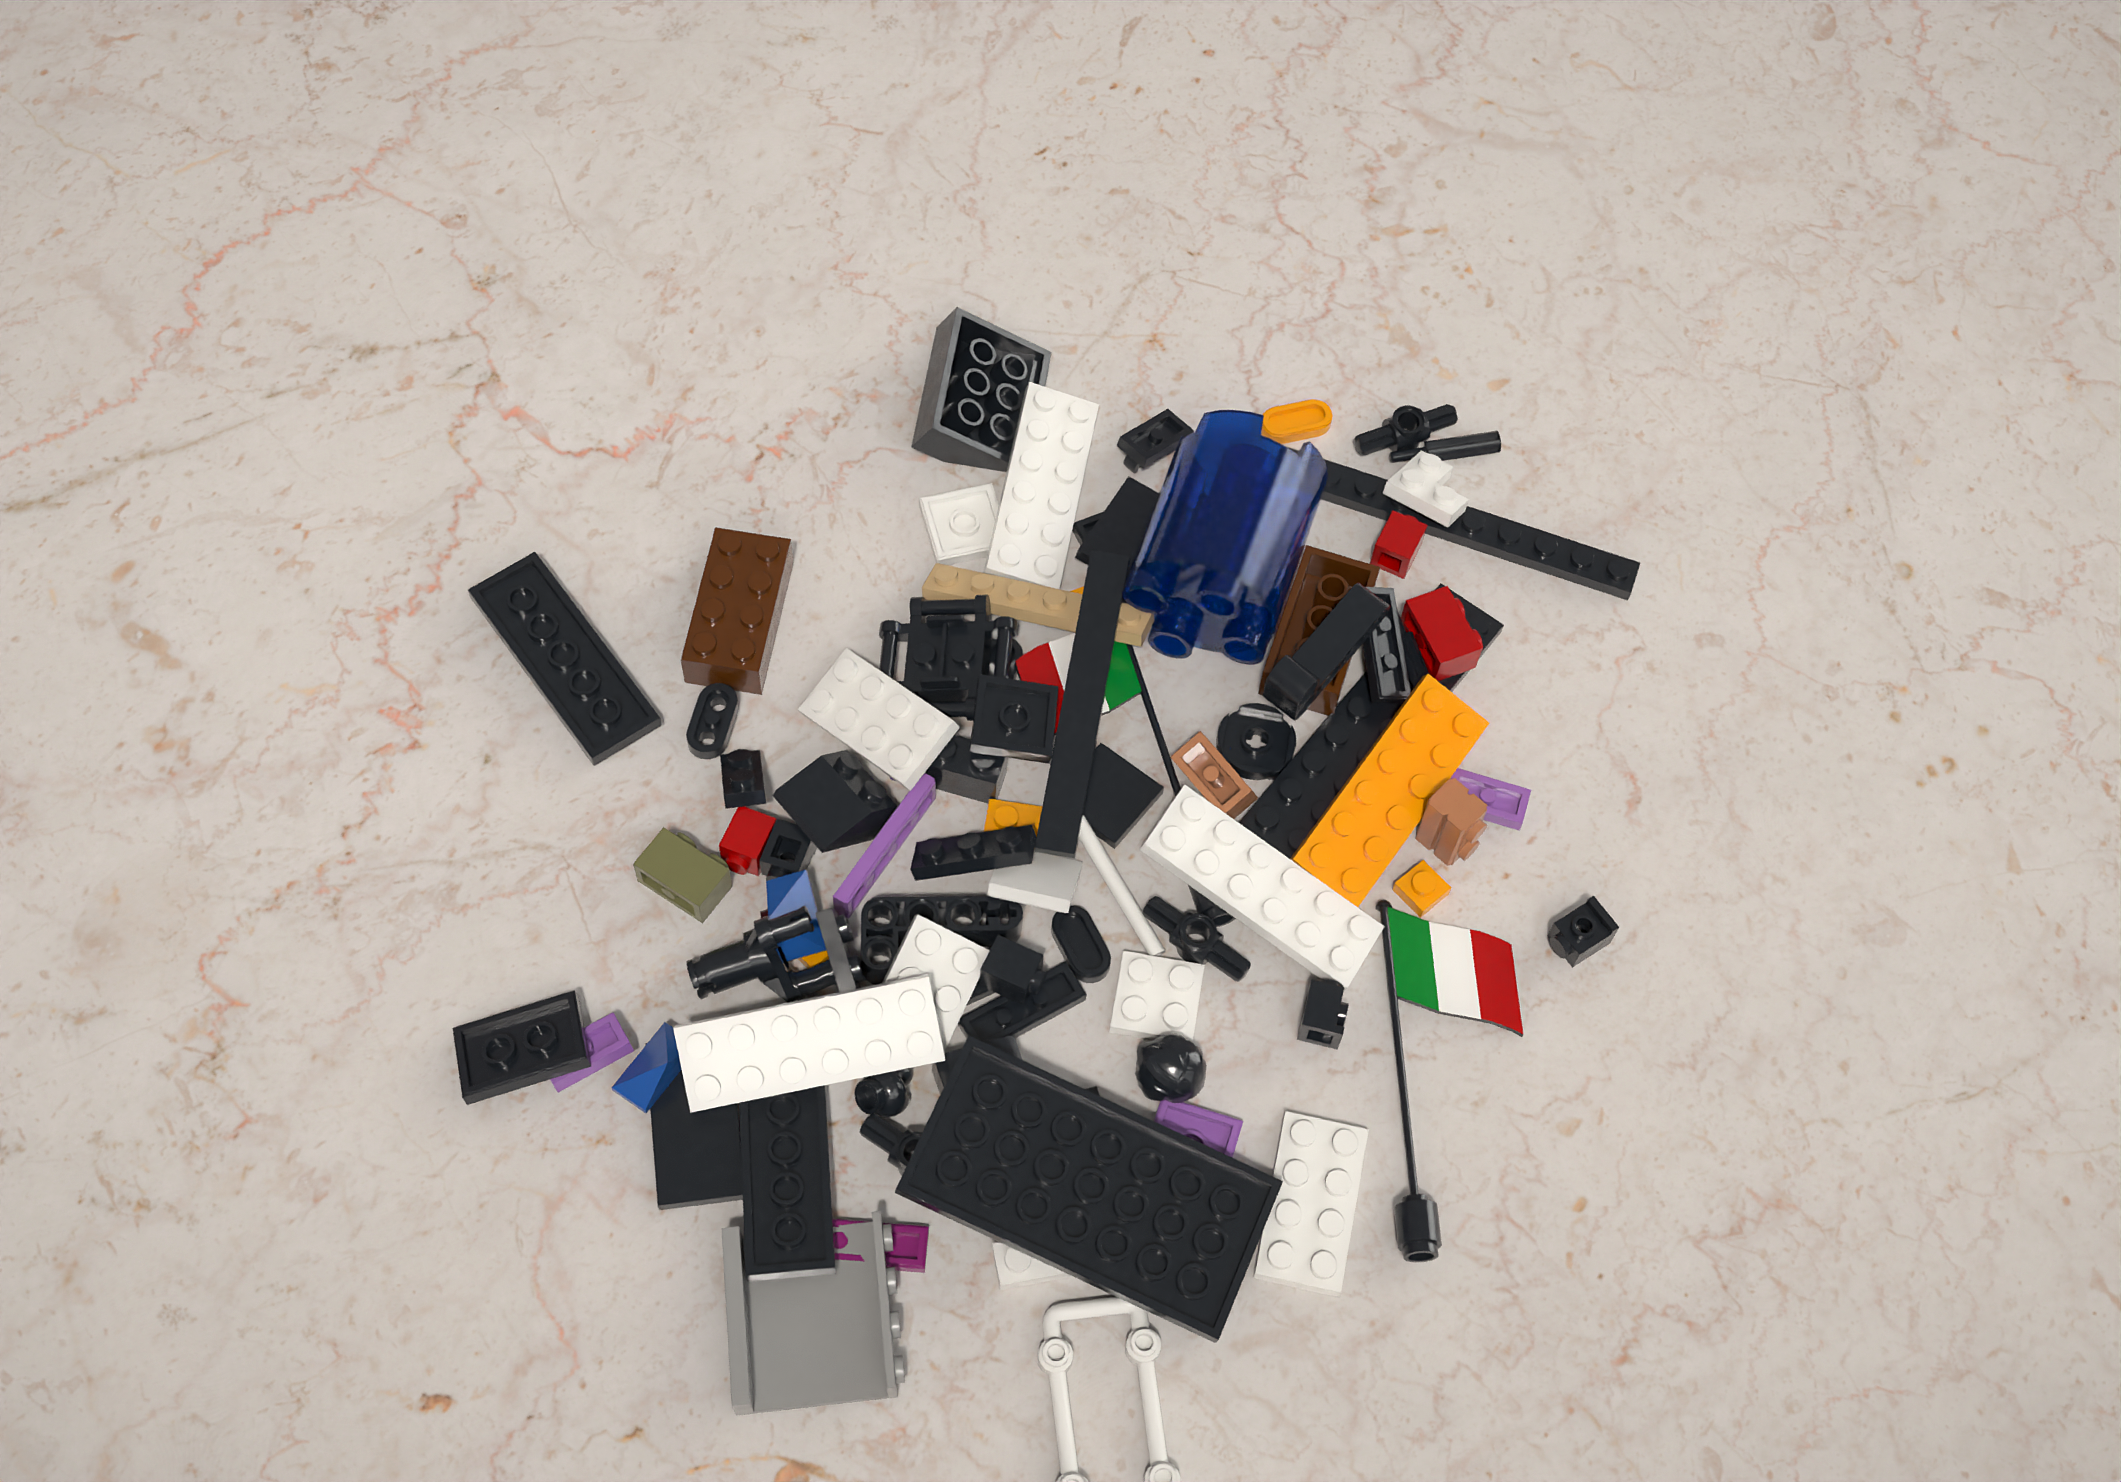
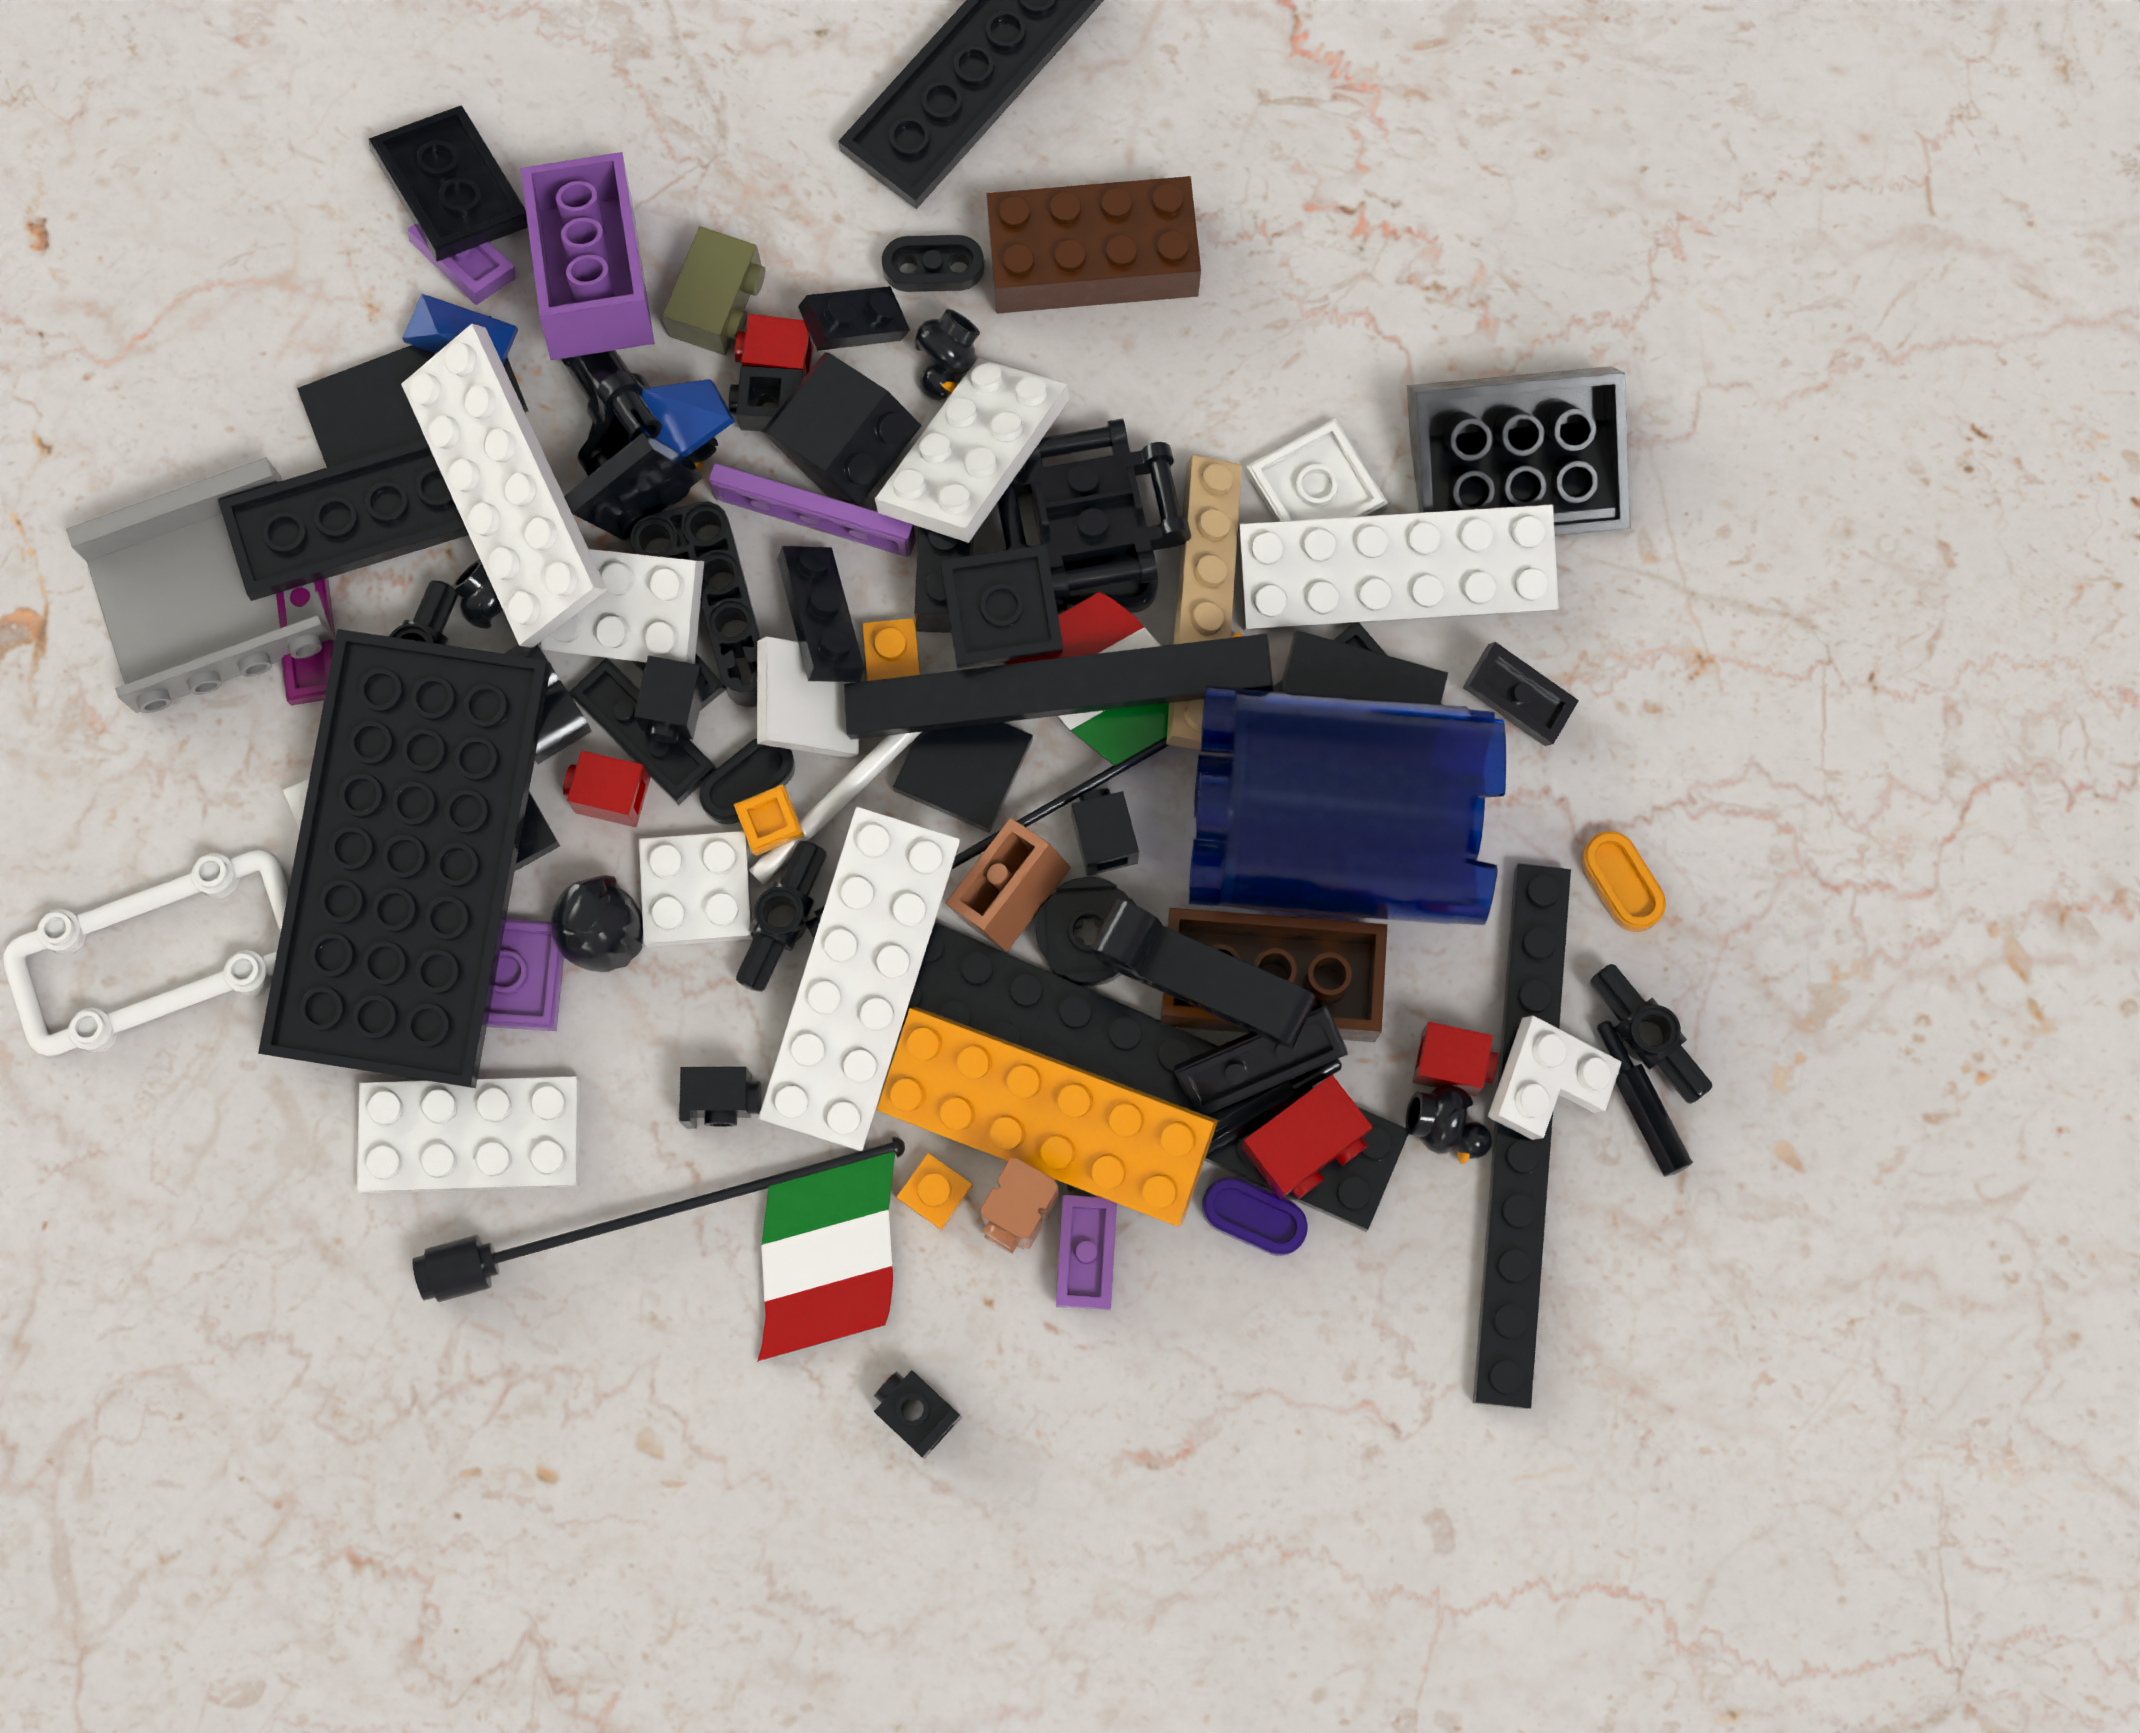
camera: 80 degrees right, 15 degrees up
(634, 943) = (586, 256): none -> medium lavender brick
(784, 722) = (950, 346): none -> black animal
(1065, 1038) = (606, 788): none -> red brick
(1122, 927) = (769, 820): none -> light orange tile
(1186, 711) = (1104, 831): none -> black brick
(1441, 559) = (1442, 1124): none -> black animal
(1484, 686) = (1254, 1216): none -> dark purple tile

